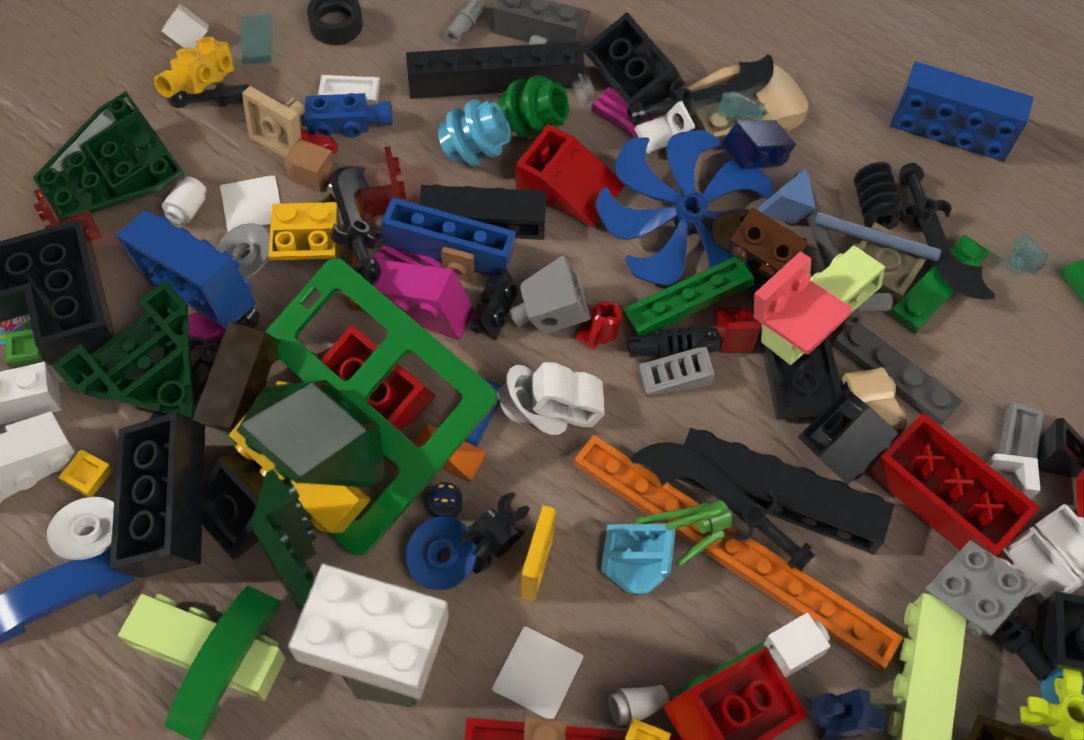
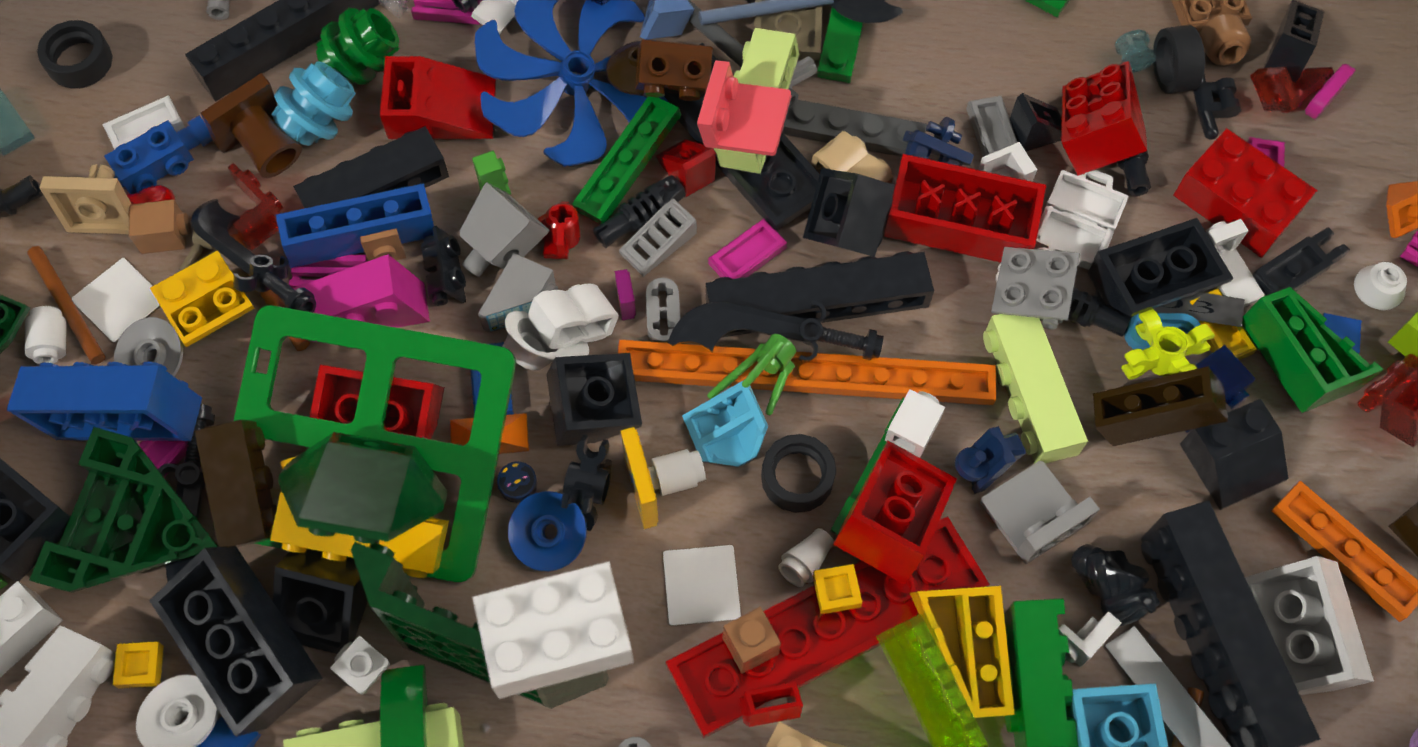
camera: 30 degrees left, 5 degrees up
(213, 188) = (66, 305): none -> dark orange bar
(233, 571) = (359, 665): none -> white bracket
(418, 120) = (247, 119): none -> reddish brown plant
(537, 347) = (515, 291): none -> light grey slope
(543, 468) = (592, 397): none -> black slope
(572, 567) = (677, 471): none -> white brick
(573, 249) = (491, 170): none -> bright green piece
(621, 401) = (625, 294): none -> magenta tile
(636, 428) = (655, 313): none -> light grey beam
(686, 603) = (793, 445): none -> black tyre
(744, 423) = (748, 251): none -> dark pink tile
(946, 414) = (922, 144): none -> dark blue hips

